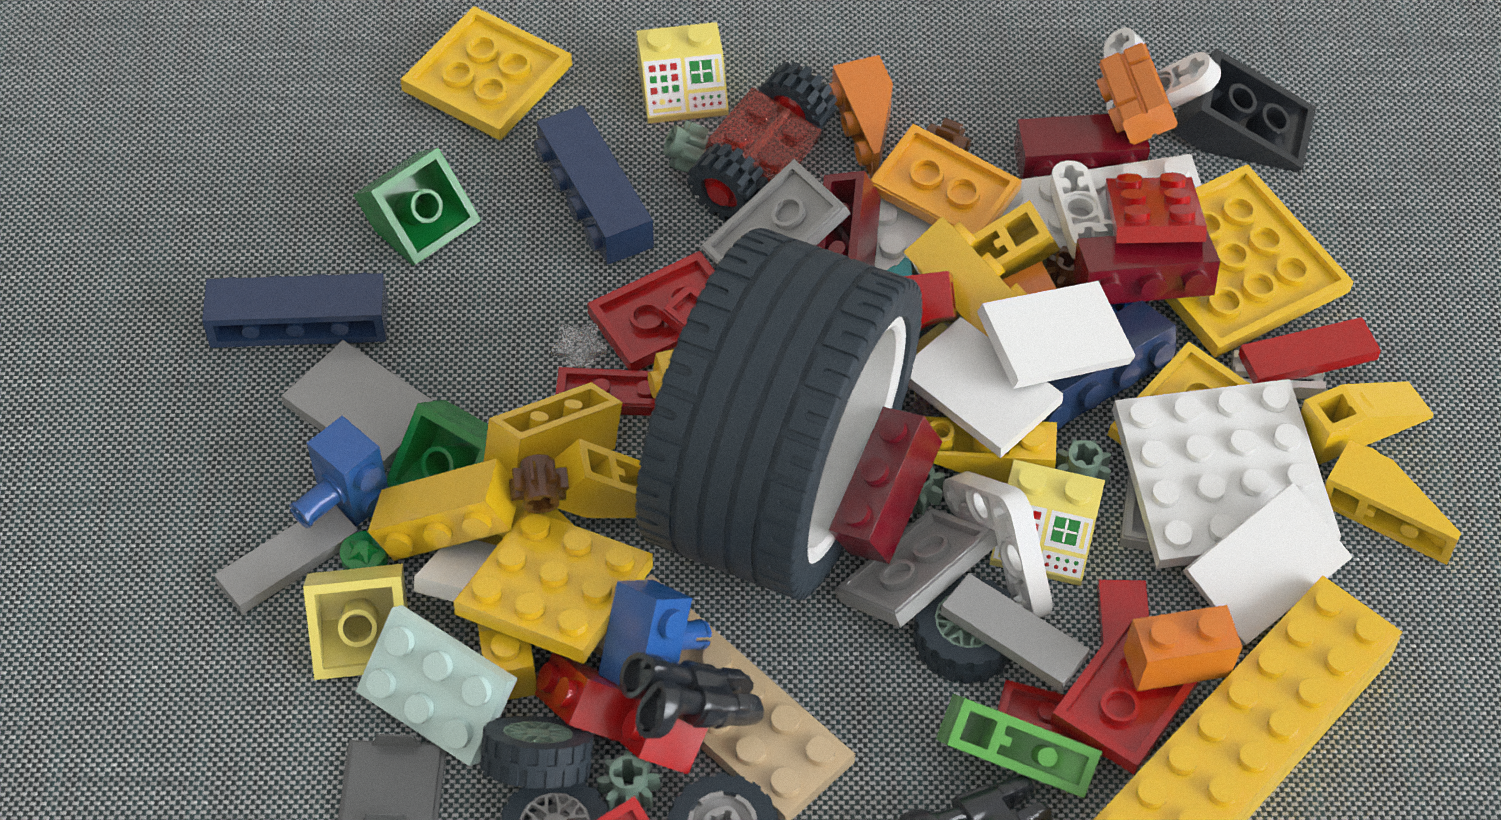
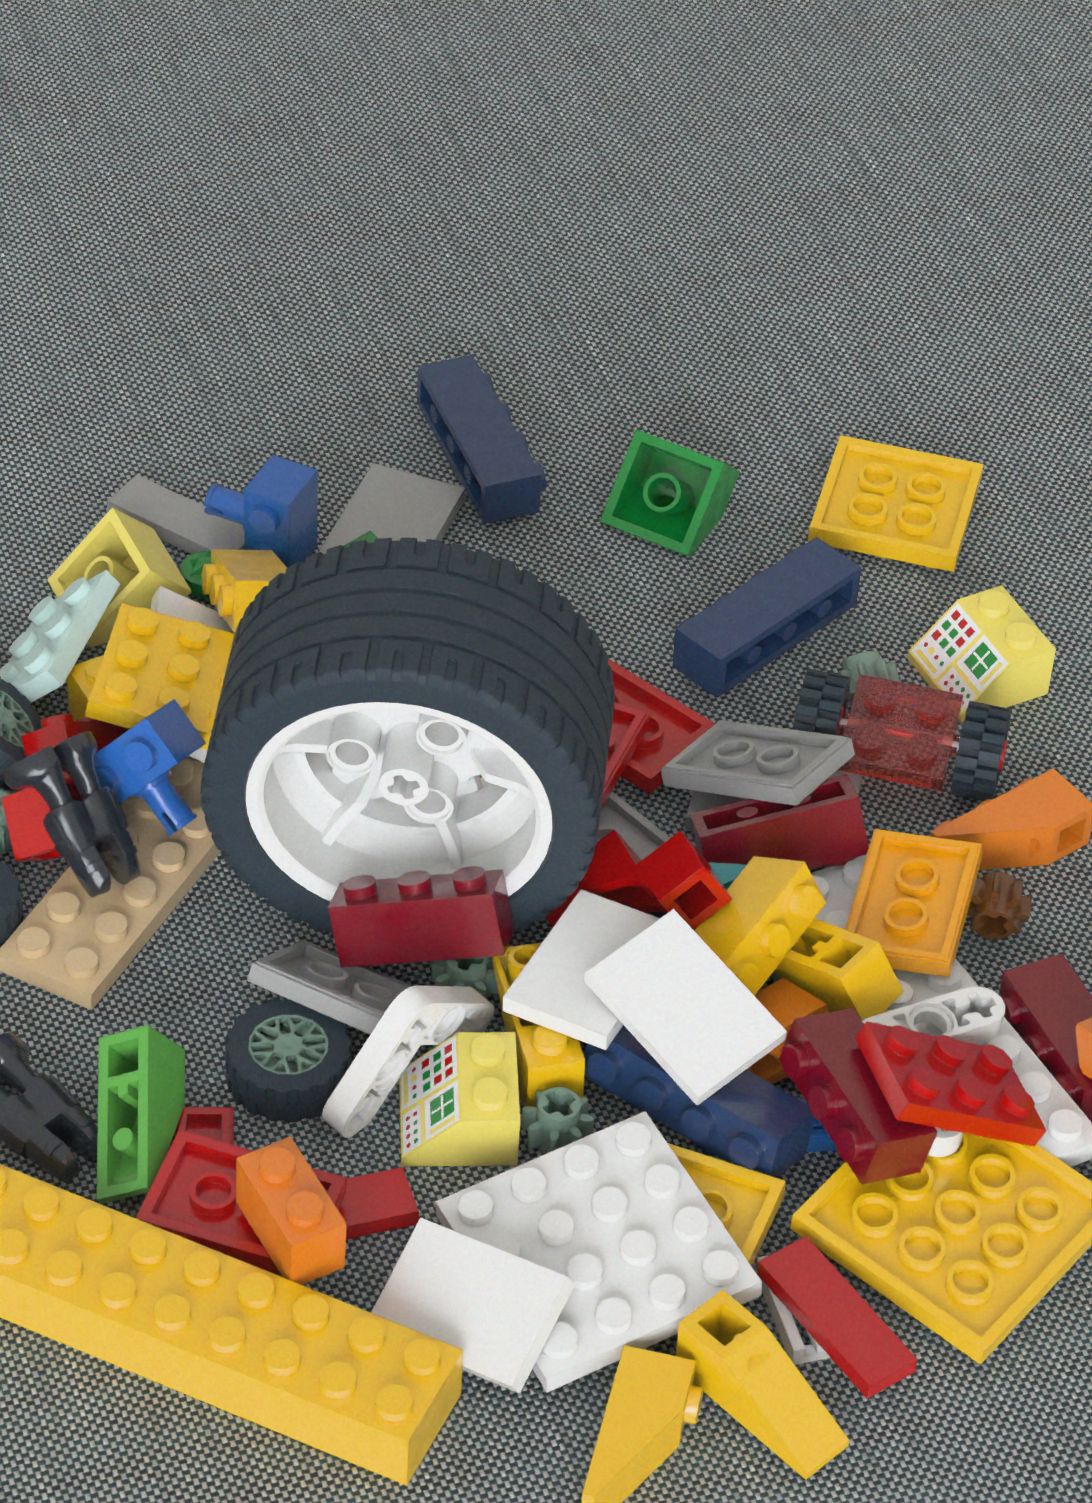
camera: 70 degrees right, 10 degrees down
(1015, 632) = (277, 1078): light grey tile -> none

